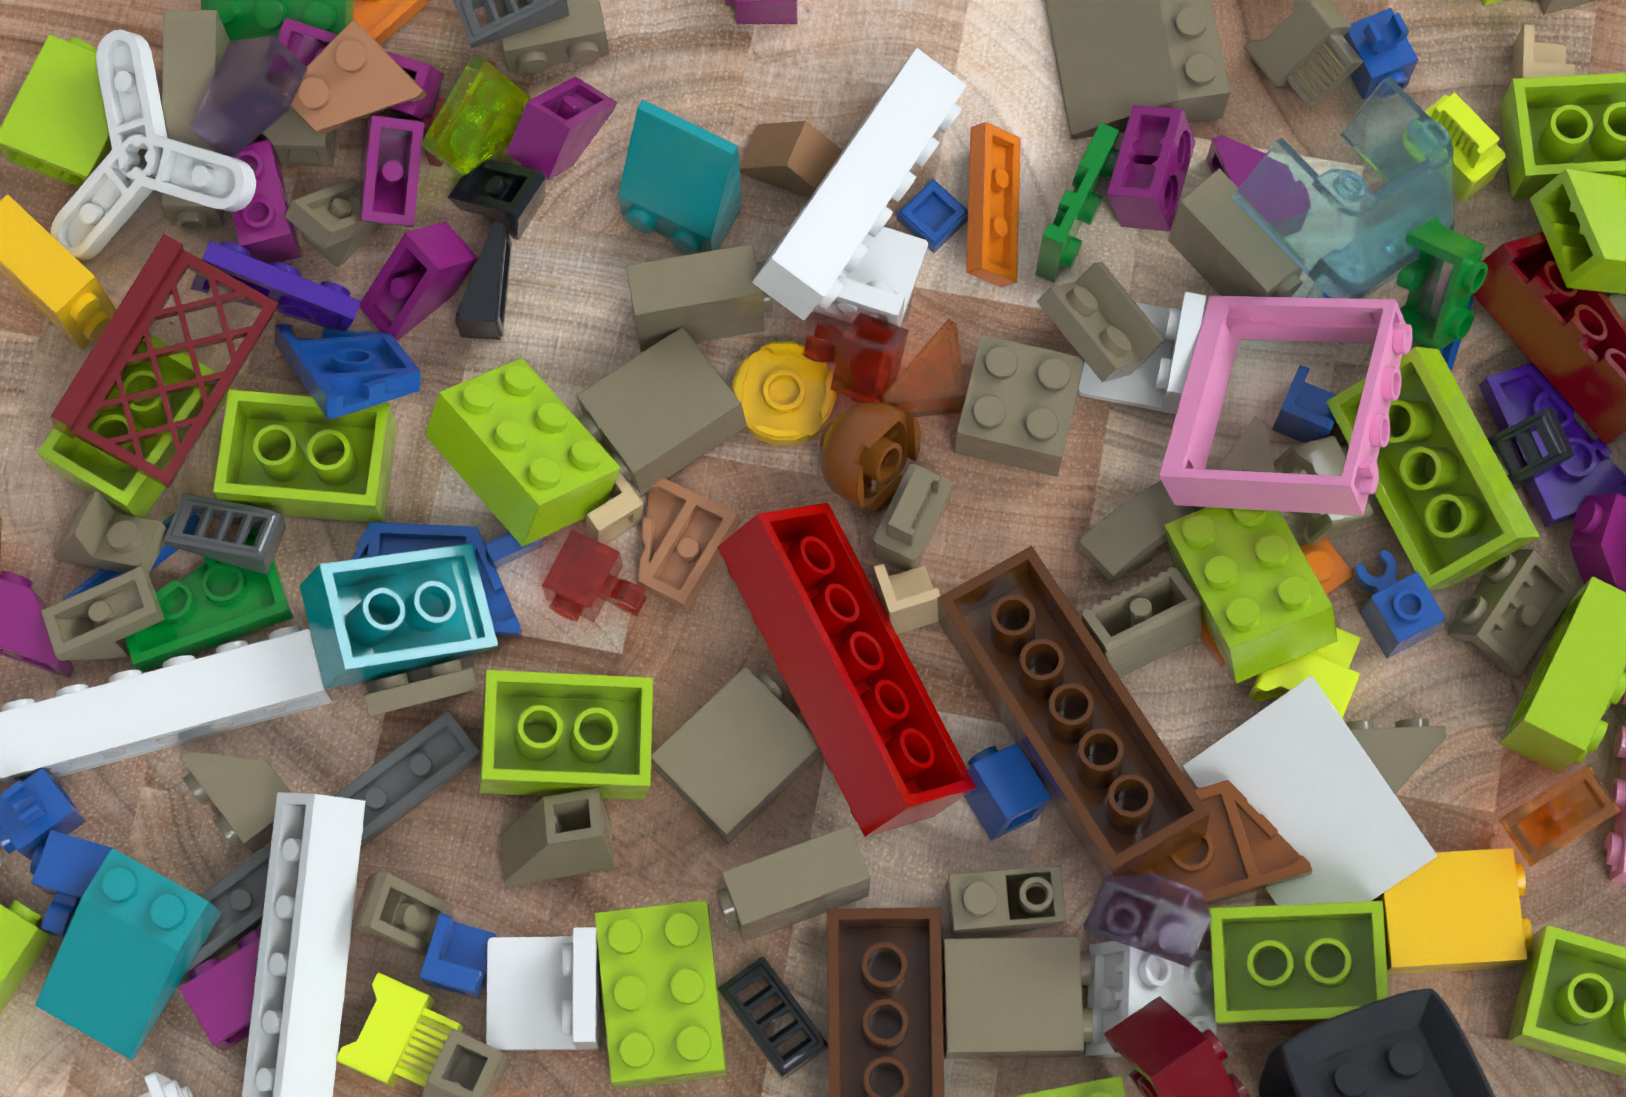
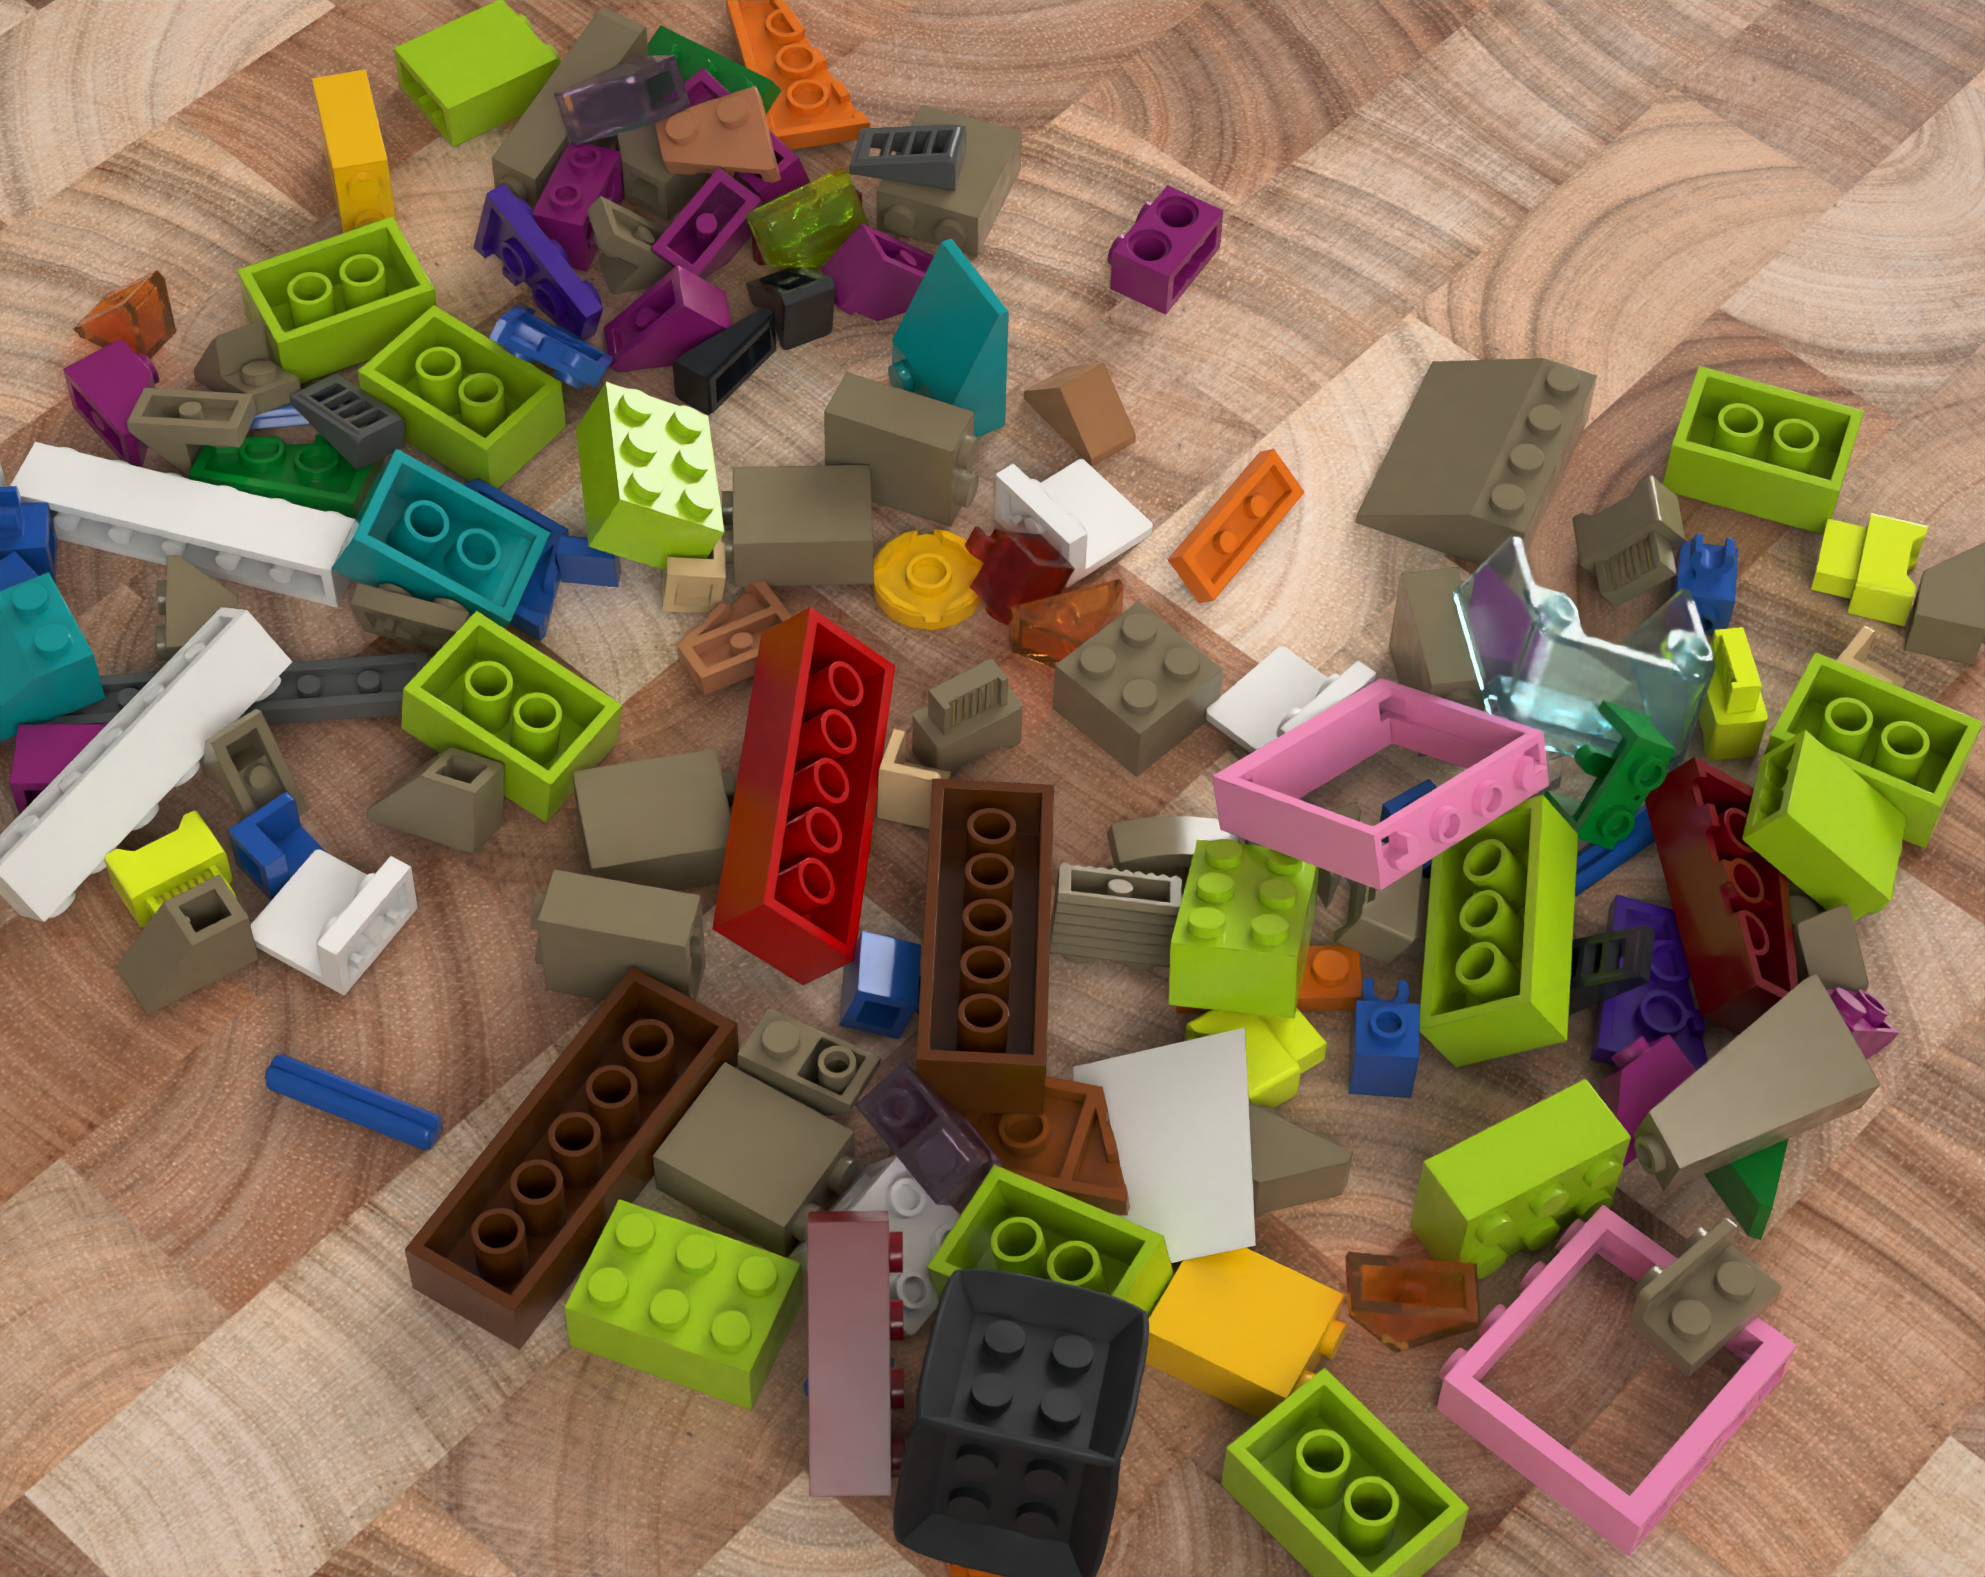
camera: 30 degrees right, 20 degrees down
(123, 337) = (365, 217): dark red fence -> none
(134, 124) = (503, 111): white piece -> none
(586, 578) = (632, 620): clear red brick -> none
(660, 995) = (430, 973): lime brick -> none
(799, 1055) = (506, 1097): black slope -> none
(859, 186) = (1112, 427): white brick -> none
(867, 452) = (963, 634): dark orange cylinder -> none
(933, 215) = (1173, 511): blue tile -> none
(1058, 242) = (1312, 559): green wing -> none
(1102, 323) = (1261, 655): dark tan bracket -> none
(1151, 168) = (1411, 542): magenta brick -> none
(1513, 609) = (1476, 1106): dark tan bracket -> none

